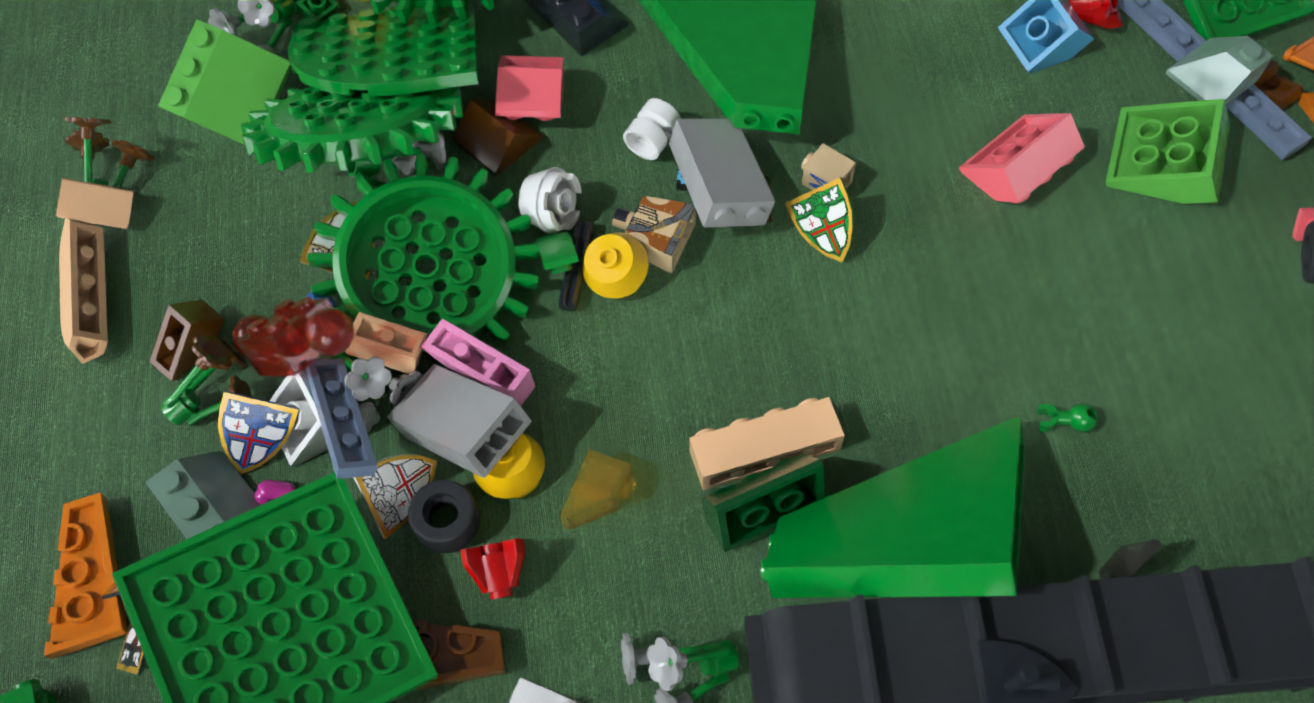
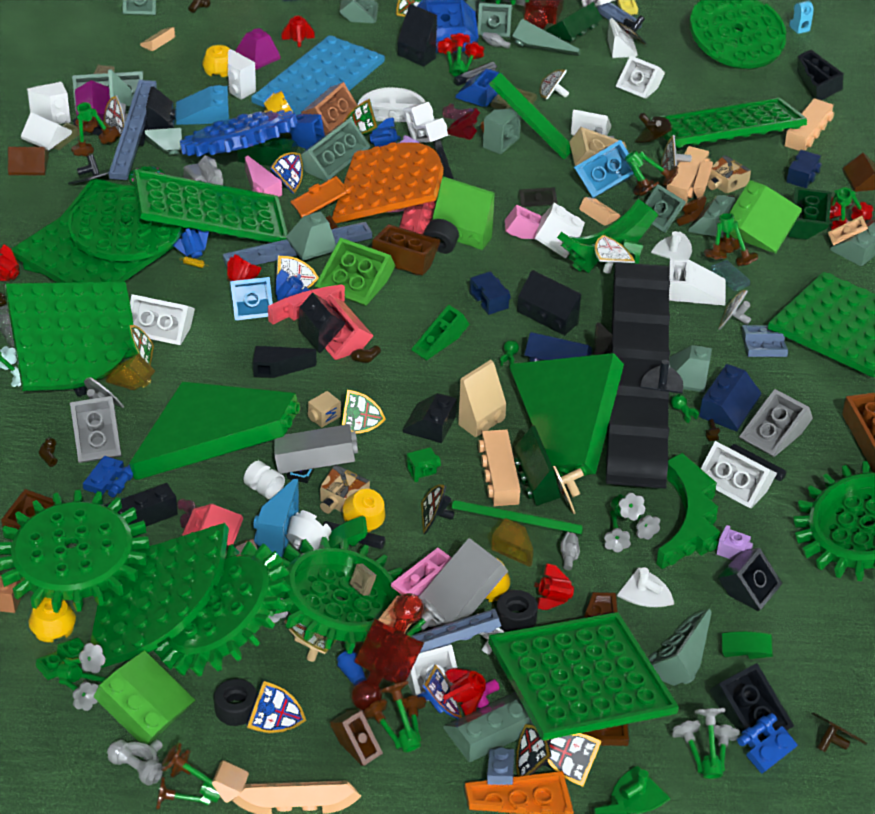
camera: 85 degrees left, 20 degrees down
(128, 537) = (500, 766): none -> sand blue plate
(129, 123) = (124, 753): none -> light grey piece
(221, 232) = (275, 710): none -> shield
(232, 174) = (230, 691): none -> black tyre
(264, 461) = (467, 688): none -> red brick
(442, 278) = (363, 579): none -> dark tan tile
(551, 145) = (275, 518): none -> dark azure slope
(587, 62) = (187, 506): none -> clear pink piece
(601, 582) = (569, 549): none -> light grey piece
(643, 365) = (435, 505): none -> shield
(651, 493) = (517, 517): none -> green tile
(729, 546) = (568, 479): none -> tan shield
(743, 326) = (422, 463): none -> green brick
(856, 325) = (432, 418): none -> black slope
(894, 379) = (481, 400): none -> tan slope
(915, 95) = (280, 361): none -> black slope
(977, 206) = (365, 356): none -> dark brown arm
(1014, 117) = (319, 321): none -> black slope
(1062, 95) = (290, 306): none -> coral slope
(1074, 302) = (441, 333): none -> green slope
(1084, 70) = (288, 286): none -> blue brick
(1096, 495) = (548, 348): none -> dark blue slope
(1118, 68) = (294, 266): none -> shield
(1209, 362) = (490, 292): none -> dark blue brick
(1213, 459) = (549, 303): none -> black slope
(1262, 205) = (407, 248): none -> reddish brown slope

